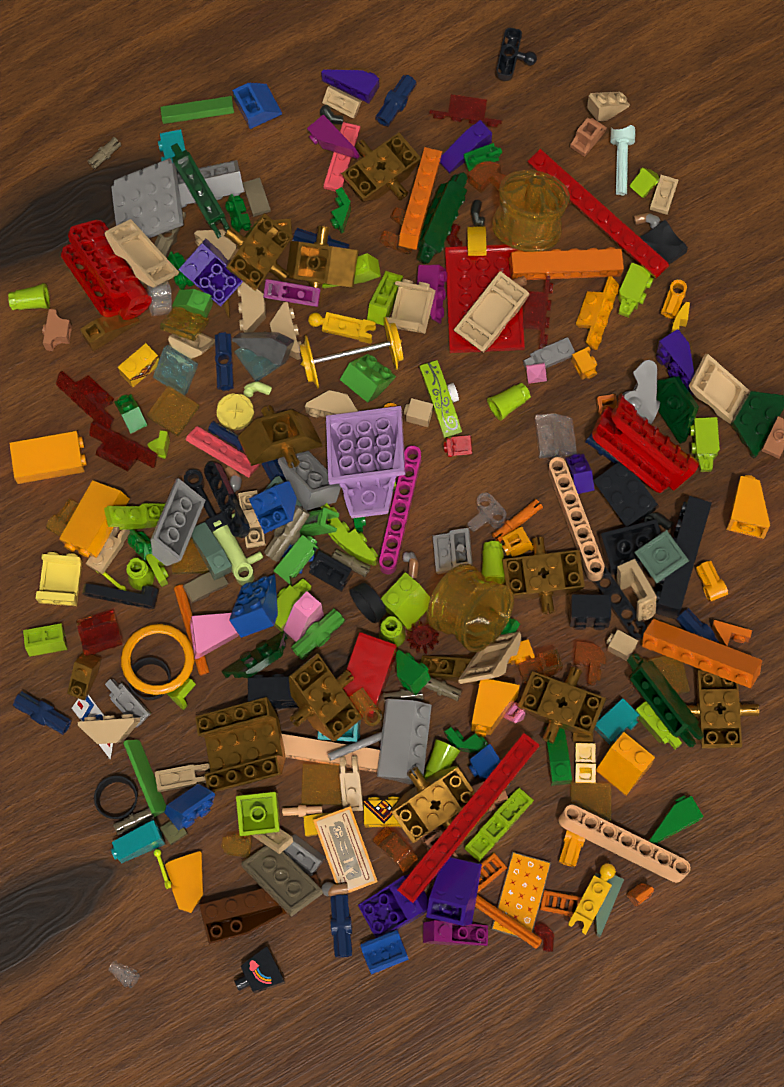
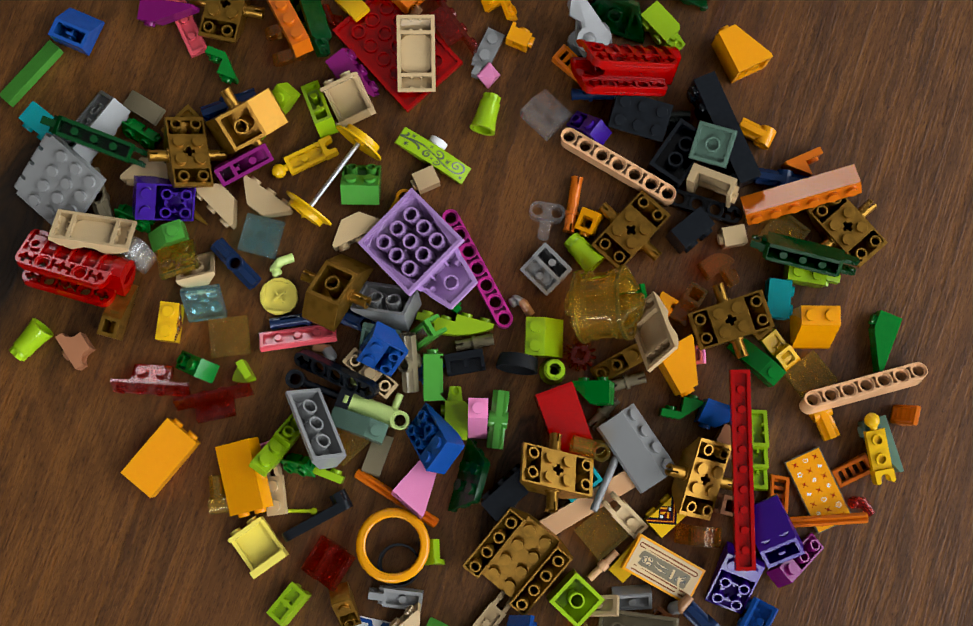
camera: 50 degrees left, 10 degrees up
(144, 577) = (326, 489): lime plant -> none
(267, 344) = (262, 222): flat silver slope -> none
(441, 758) = (674, 438): lime plant -> none
(458, 445) = (478, 181): bracket -> none

